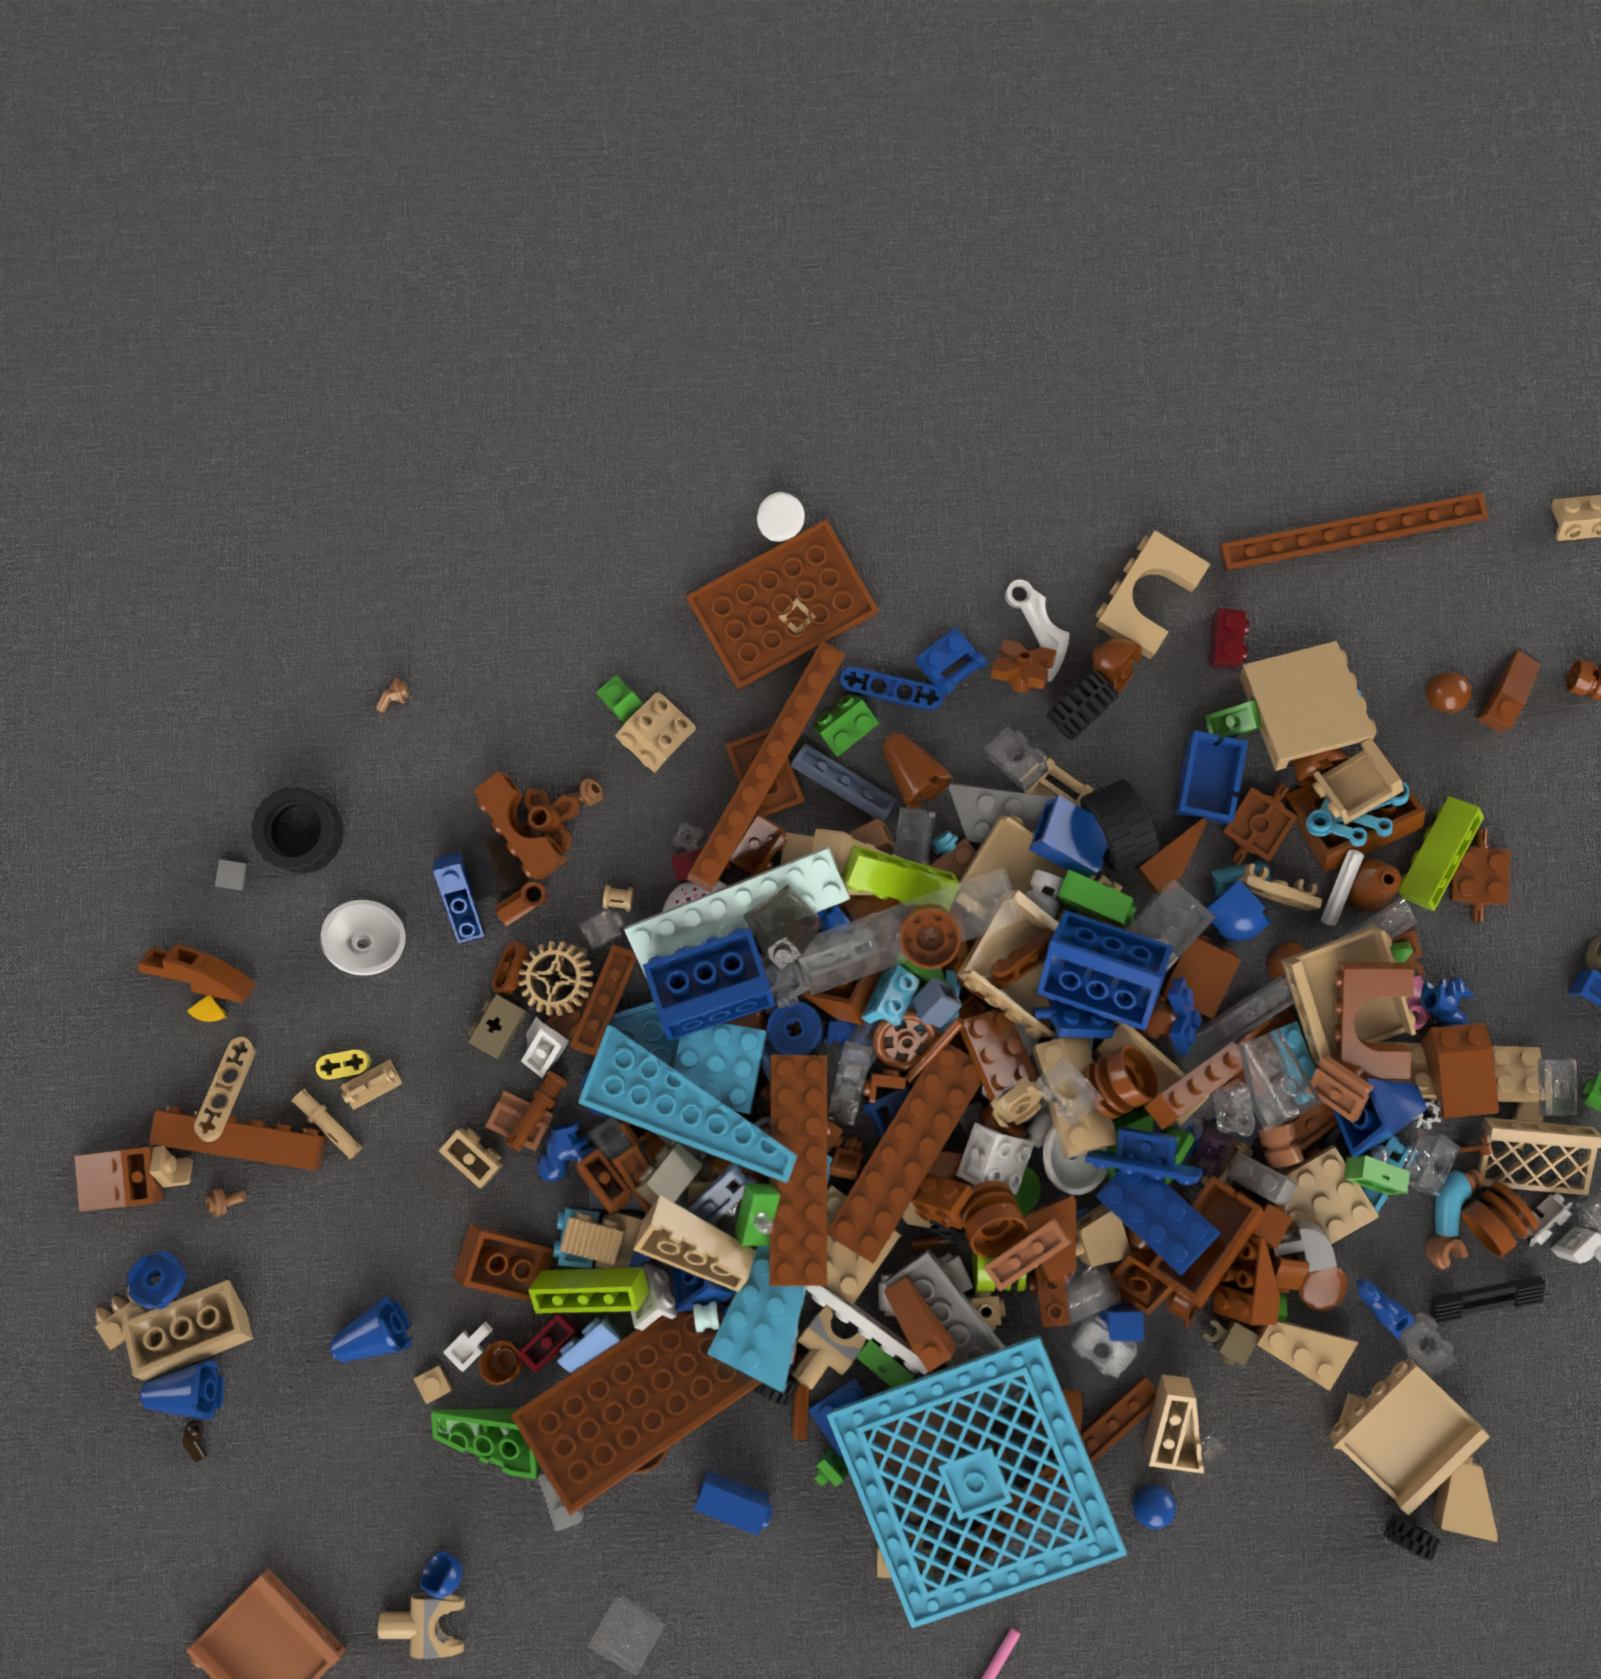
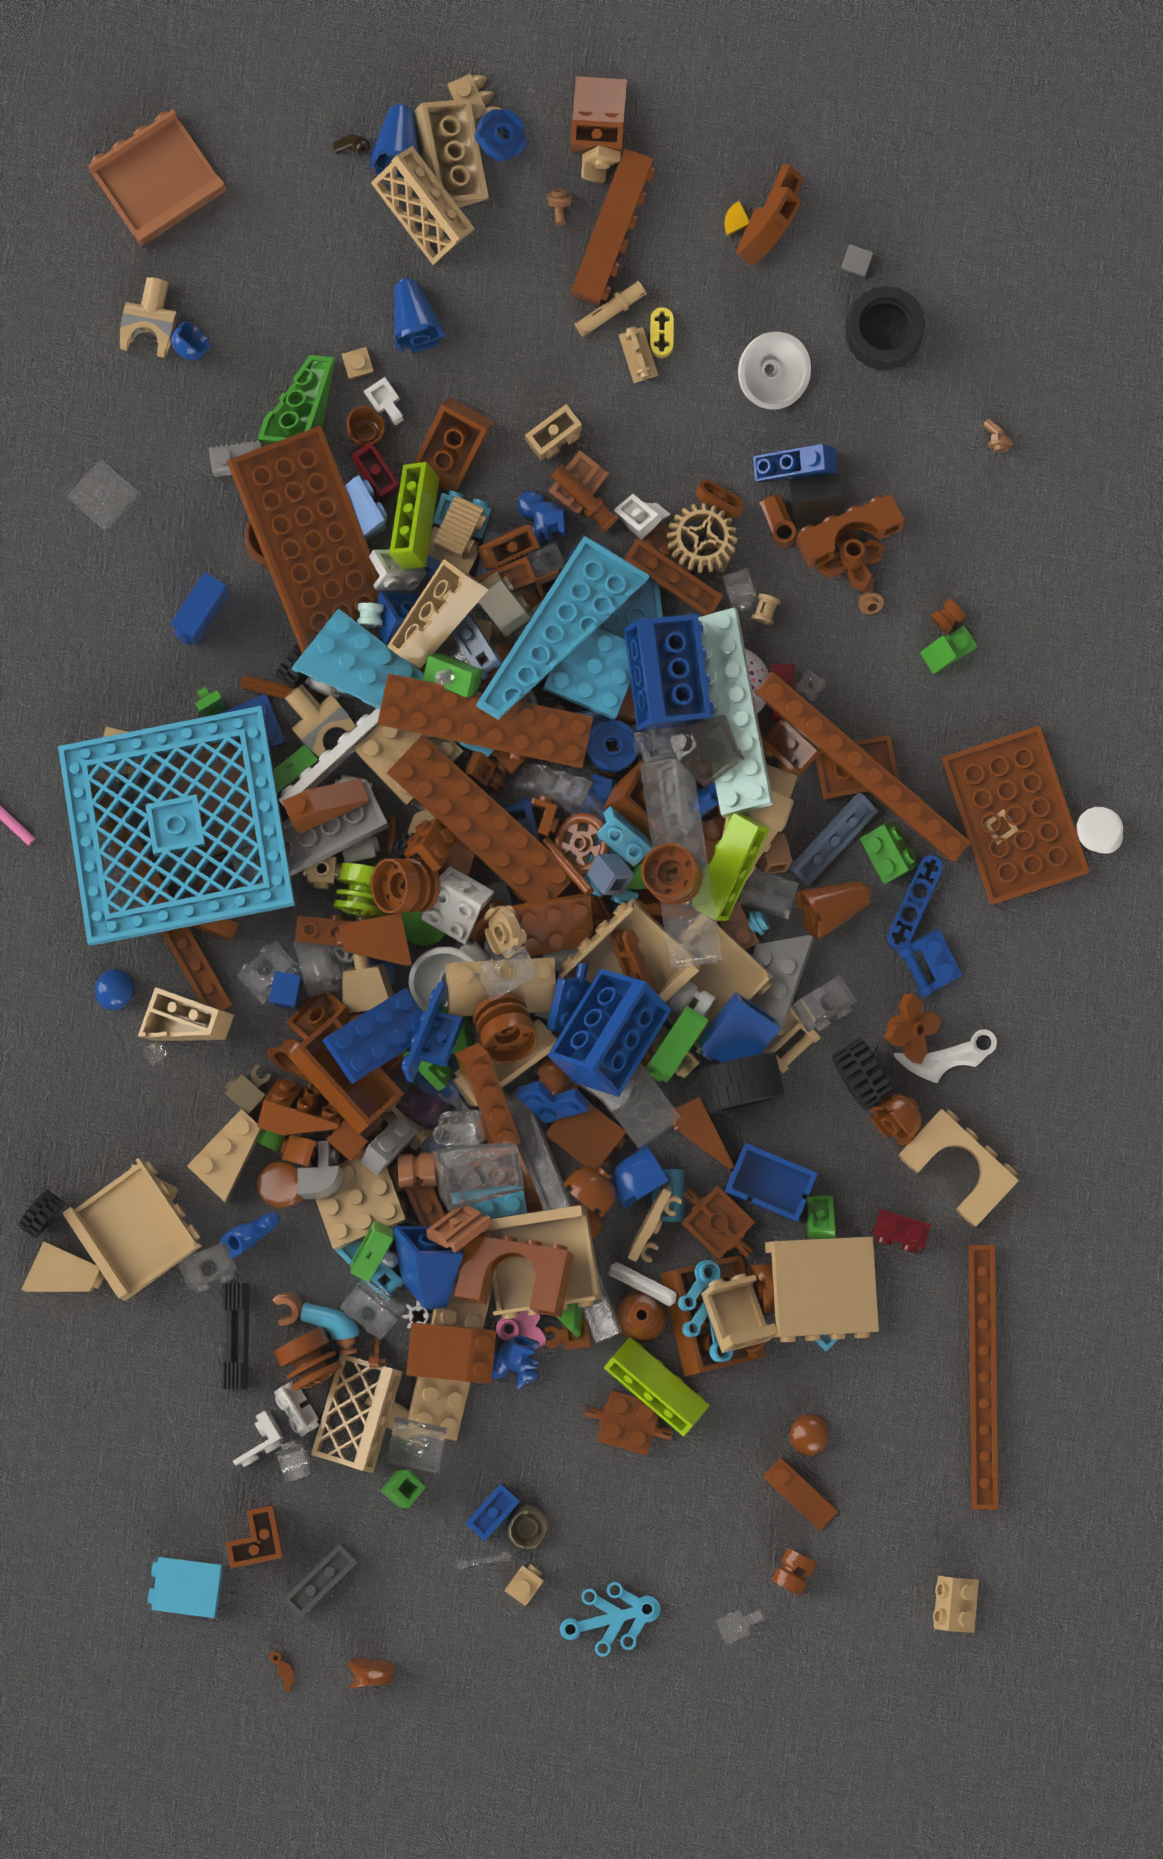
camera: 110 degrees right, 0 degrees up
(220, 1087) = (660, 223): tan beam -> none
(237, 1343) = (432, 198): none -> tan fence
(496, 1042) = (673, 491): dark tan brick -> none
(591, 711) = (945, 618): none -> dark orange wheel
(655, 731) = (916, 674): tan bracket -> none
(1027, 1254) = (368, 908): nougat plate -> none
(1263, 958) = (592, 1188): none -> dark orange cylinder

